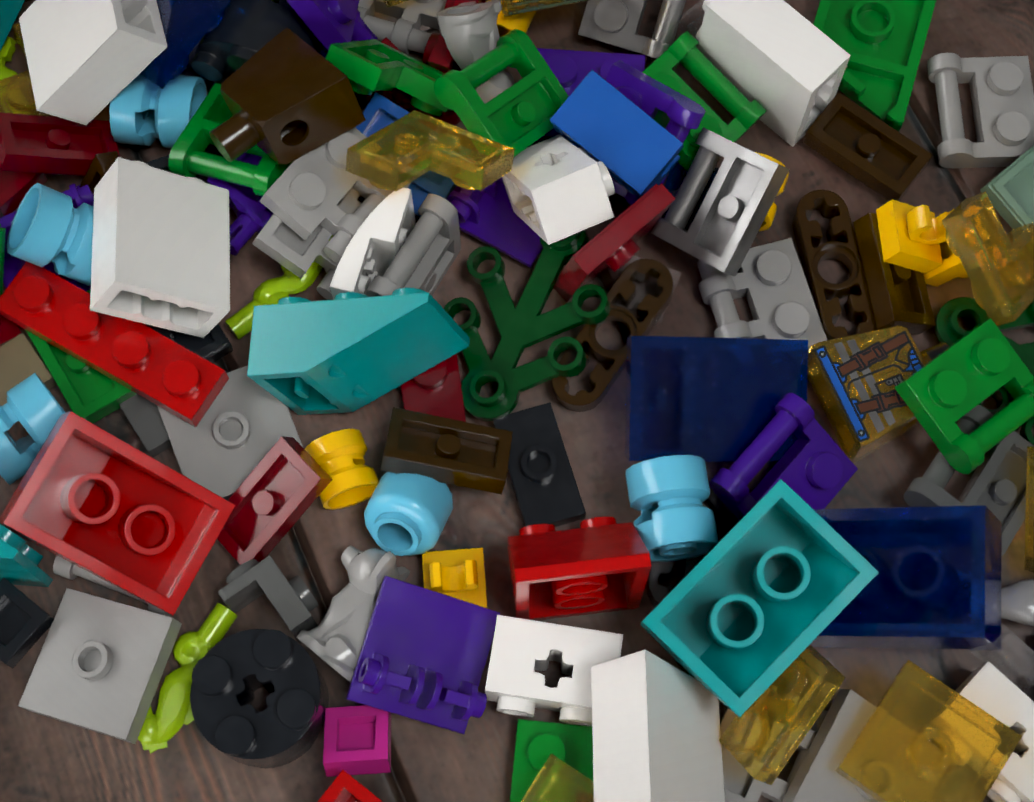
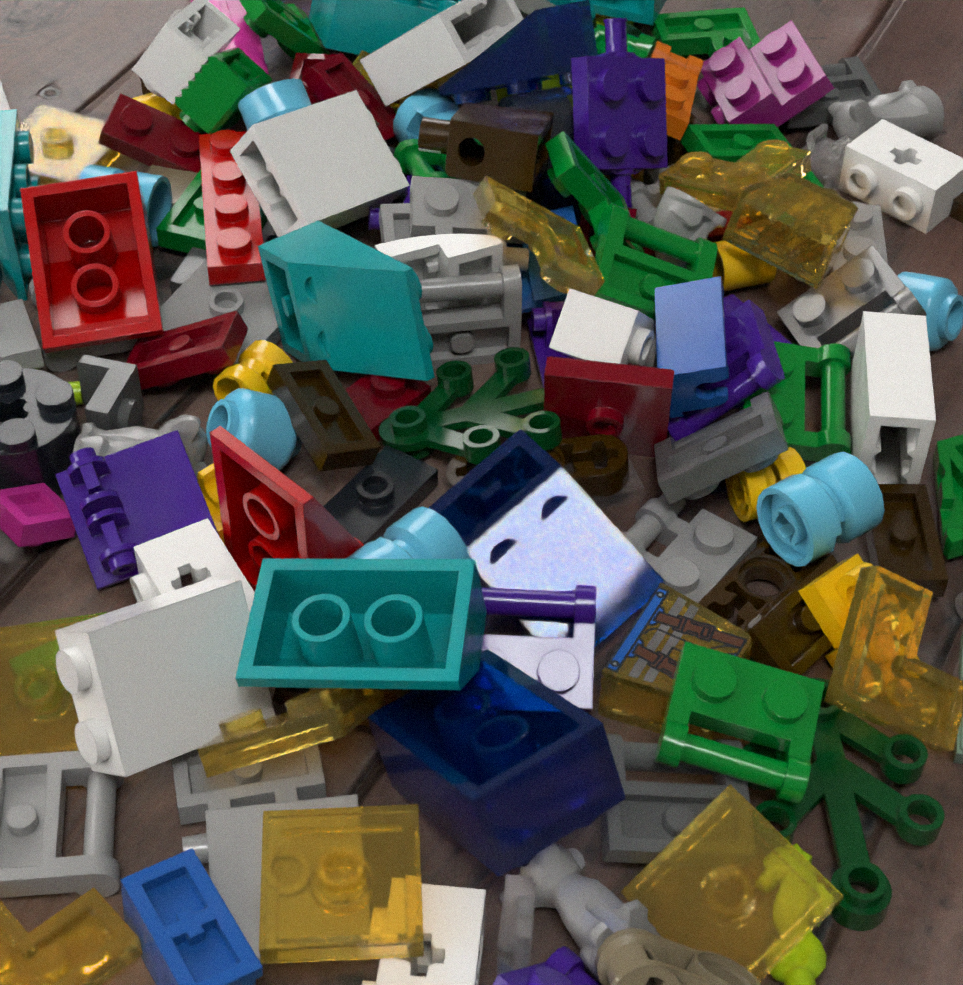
camera: 50 degrees right, 25 degrees down
(834, 185) = (819, 508): none -> medium azure wheel

